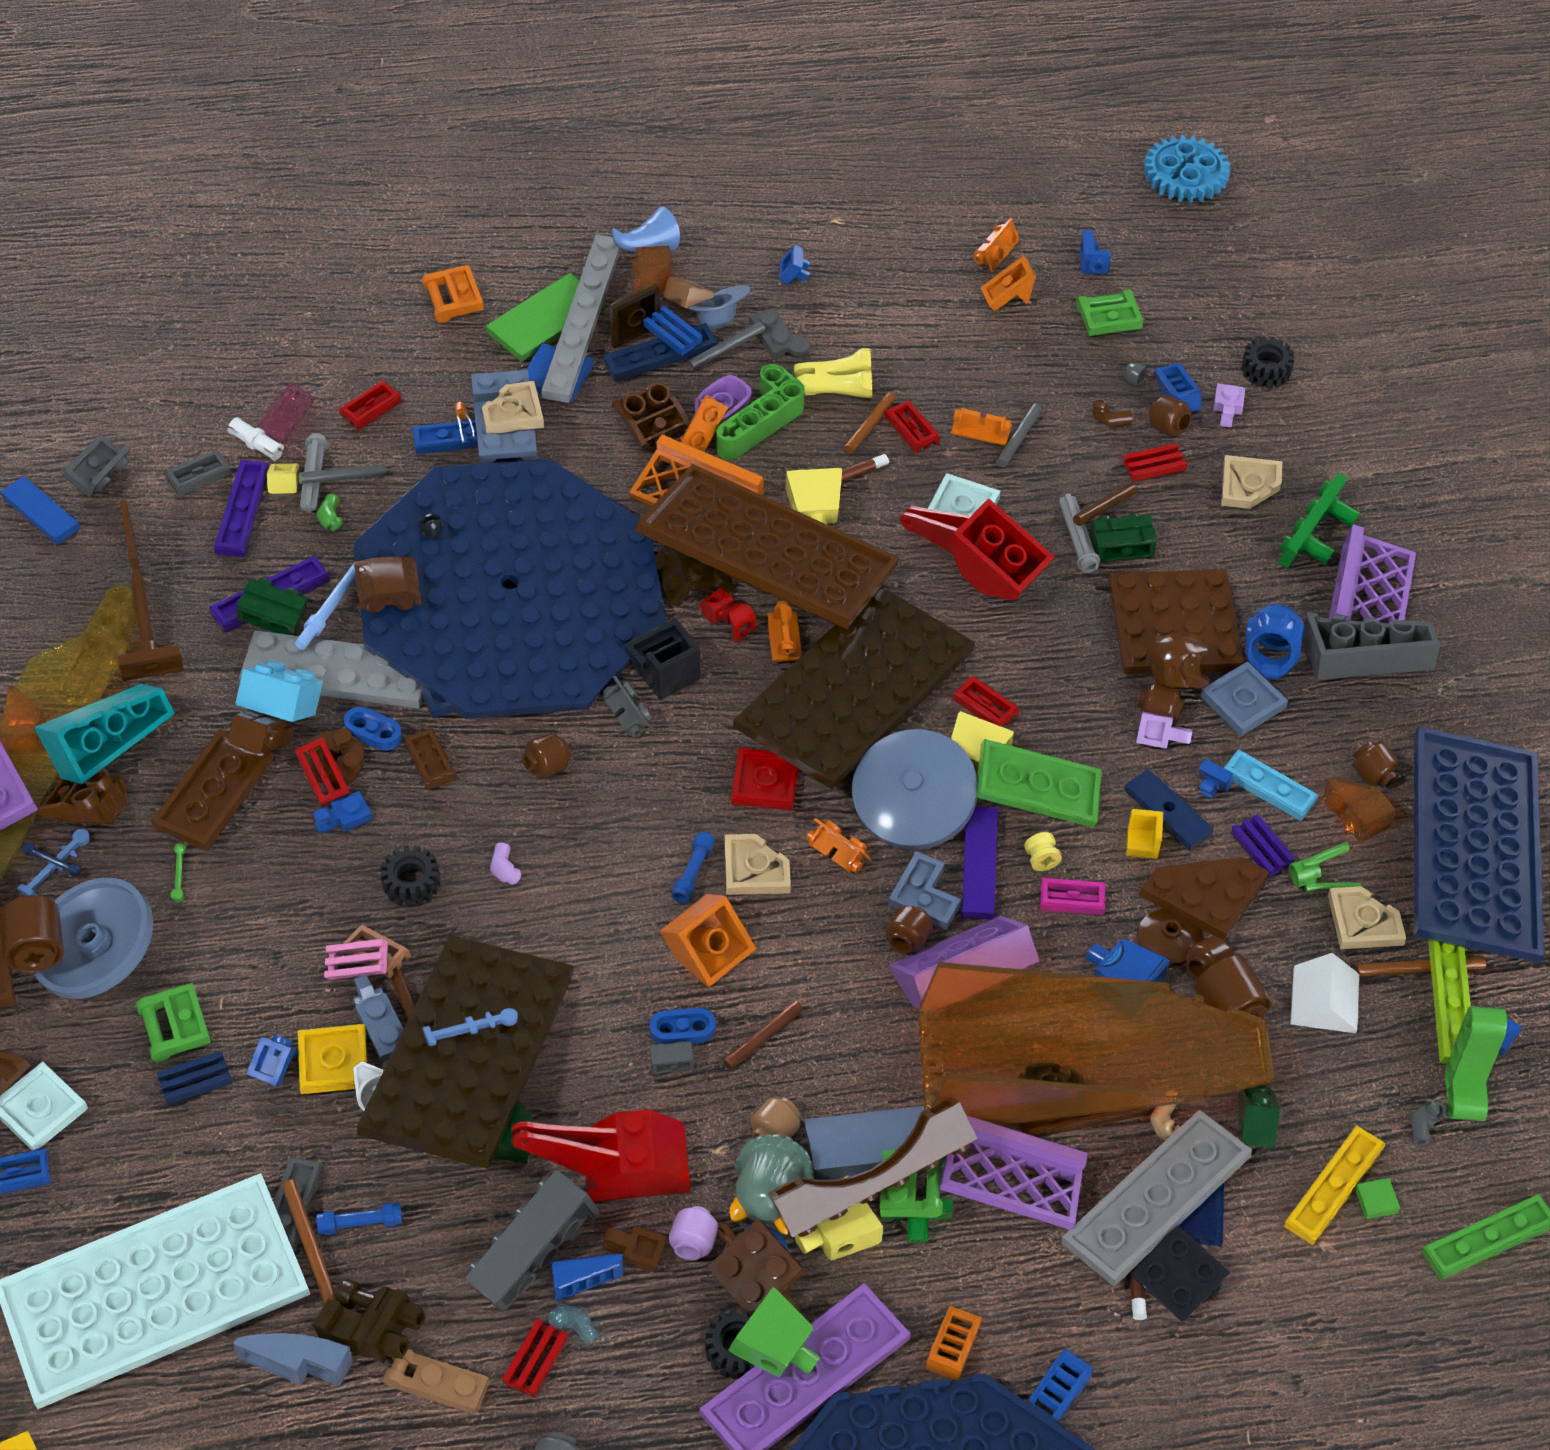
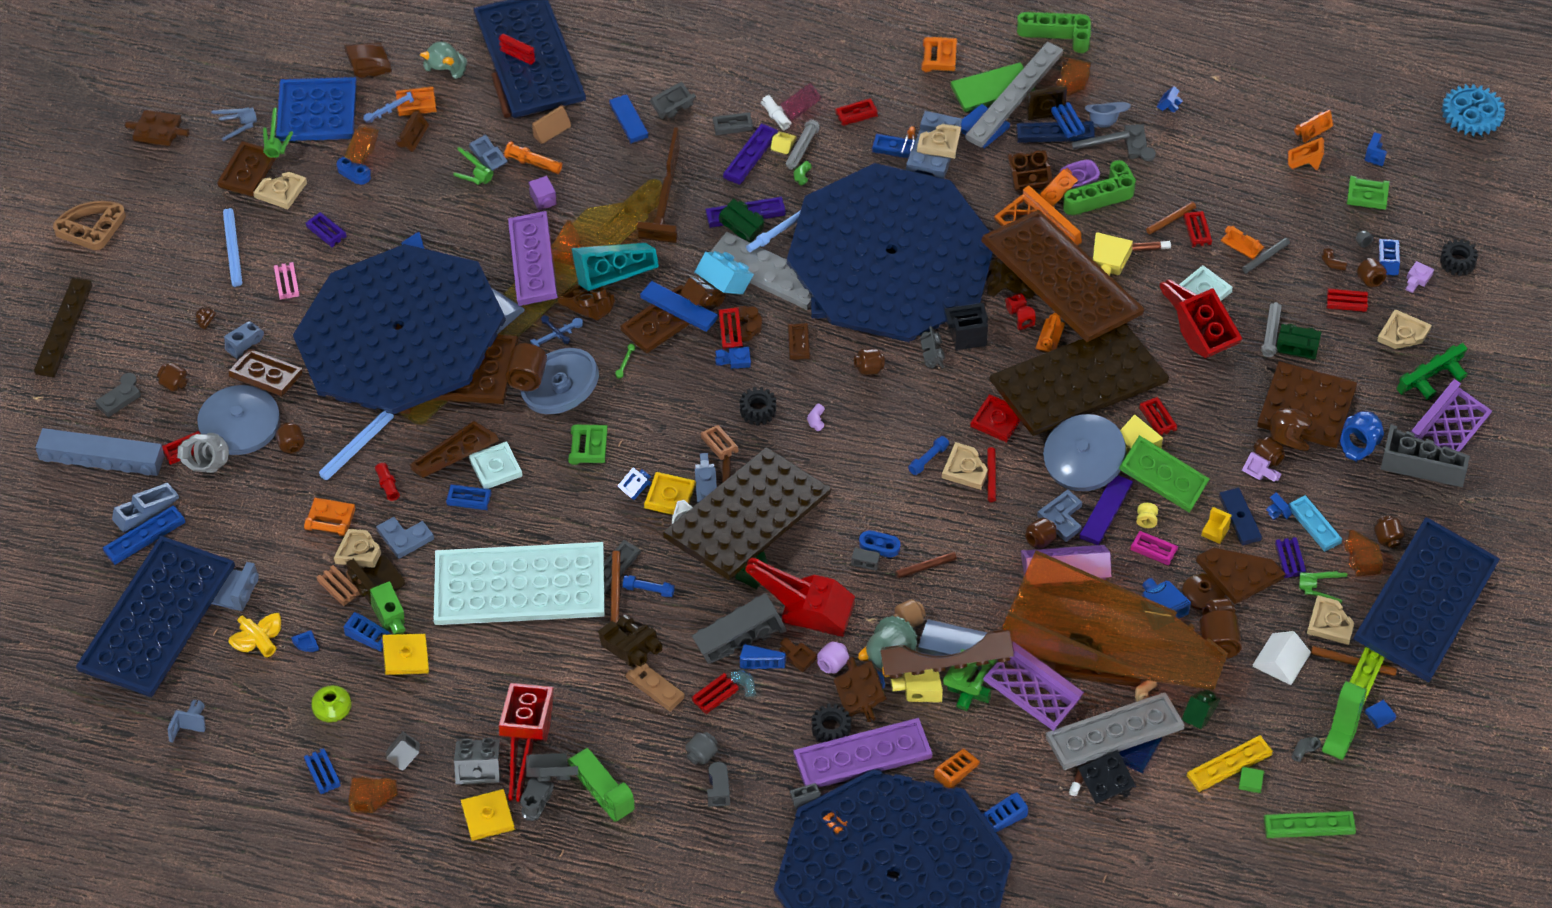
camera: 25 degrees right, 0 degrees up
(192, 1073) = (588, 476): dark blue tile -> none
(230, 763) = (678, 306): none -> blue tile
(295, 1356) = (583, 645): sand blue slope -> none
(333, 960) = (706, 435): bright pink tile -> none
(342, 474) = (819, 150): dark grey bar -> none
(375, 728) = (775, 315): blue plate -> none
(387, 582) = (814, 226): reddish brown slope -> none
(431, 526) = (855, 199): black hinge -> none
(507, 1017) = (776, 502): medium blue piece -> none
(596, 211) = (1057, 27): none -> bright green beam
(658, 230) = (1087, 51): medium blue hat -> none
(686, 292) = (1089, 97): medium nougat slope -> none
(708, 938) = (918, 499): orange slope -> none
(775, 1337) = (850, 725): bright green torso -> none
(795, 865) = (991, 466): none -> red bar
(840, 376) = (1166, 182): light yellow piece -> none
(848, 852) = (1027, 477): orange hinge -> none
(1105, 504) = (1297, 316): reddish brown bar -> none
(1244, 698) = (1325, 465): sand blue plate -> none

